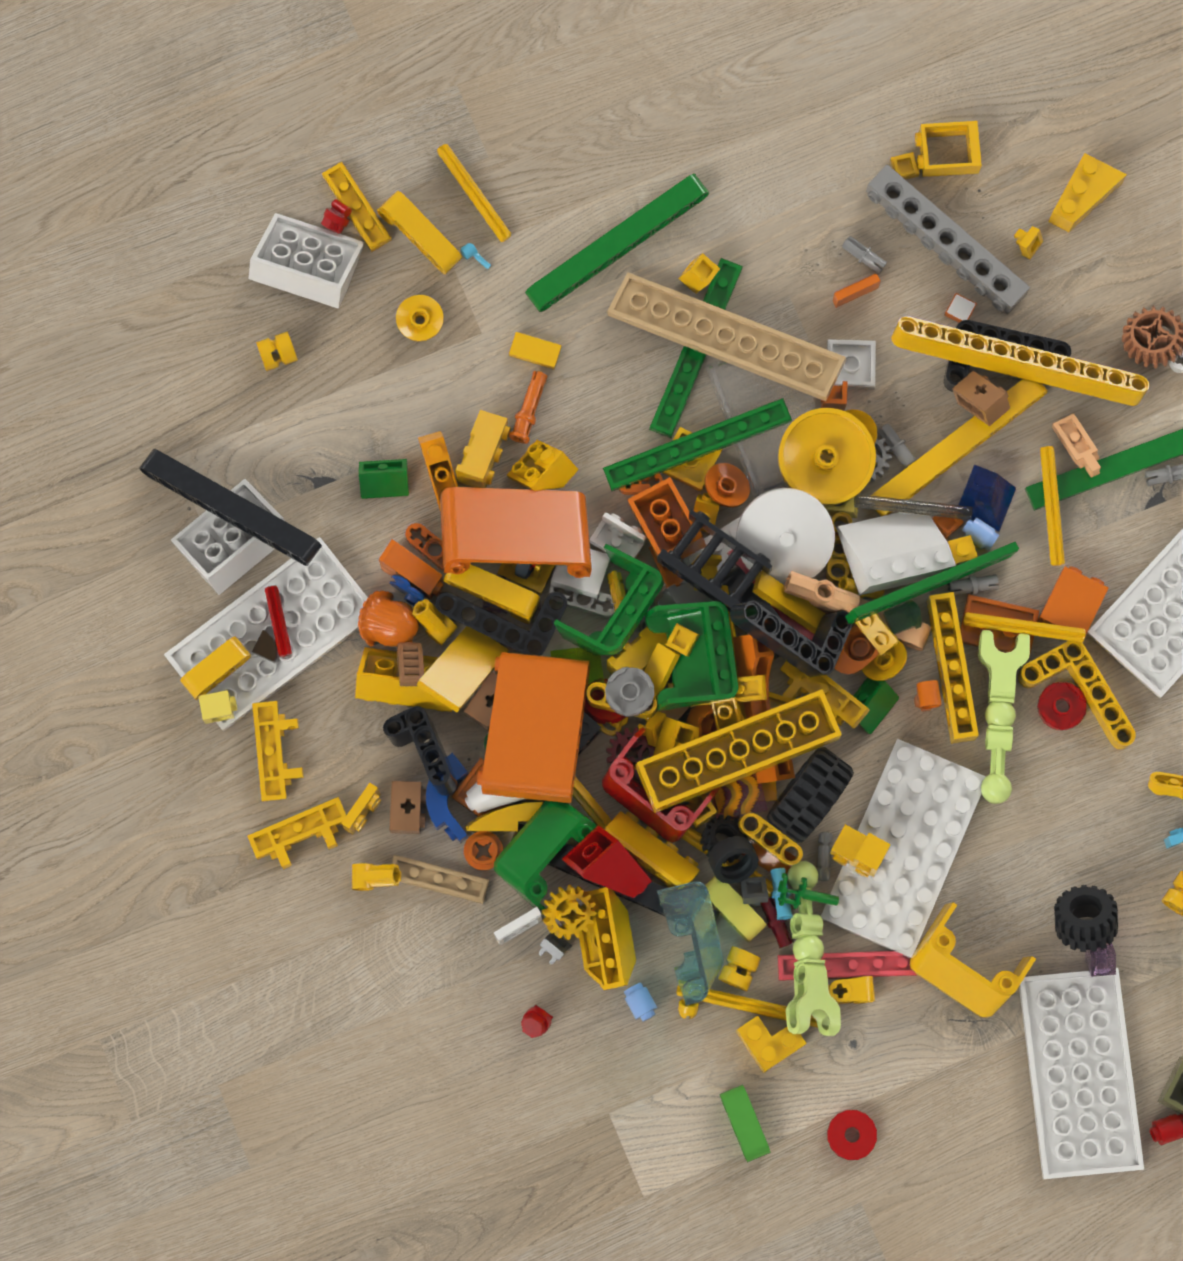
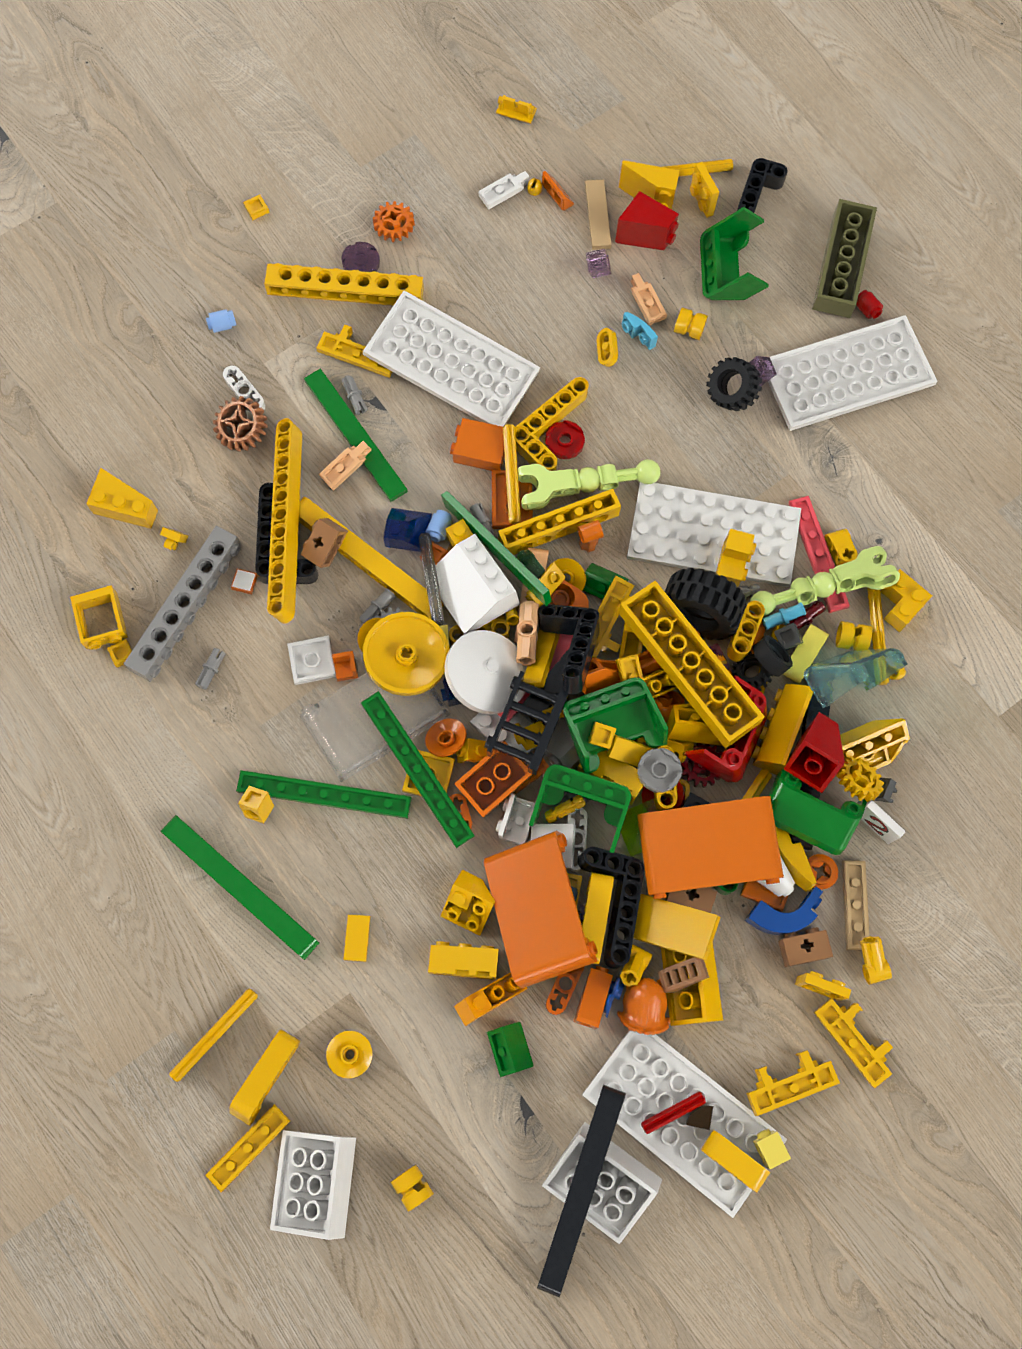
camera: 105 degrees left, 5 degrees down
(336, 217) = (263, 1164): red piece -> none
(418, 733) = (757, 939): black beam -> none
(470, 250) = (272, 1023): medium azure hand -> none
(525, 417) = (423, 930): orange pin -> none
(536, 1022) = (949, 790): red piece -> none
(640, 1002) = (905, 708): light blue brick -> none
(726, 336) = (311, 767): tan plate -> none
(745, 1123) = (972, 606): bright green beam -> none
(804, 893) = (781, 597): green piece -> none
(856, 290) = (244, 667): orange tile -> none
(865, 1128) = (955, 516): red tile -> none
(957, 980) = (796, 487): yellow windscreen -> none
(1052, 505) = (401, 474): yellow axle -> none

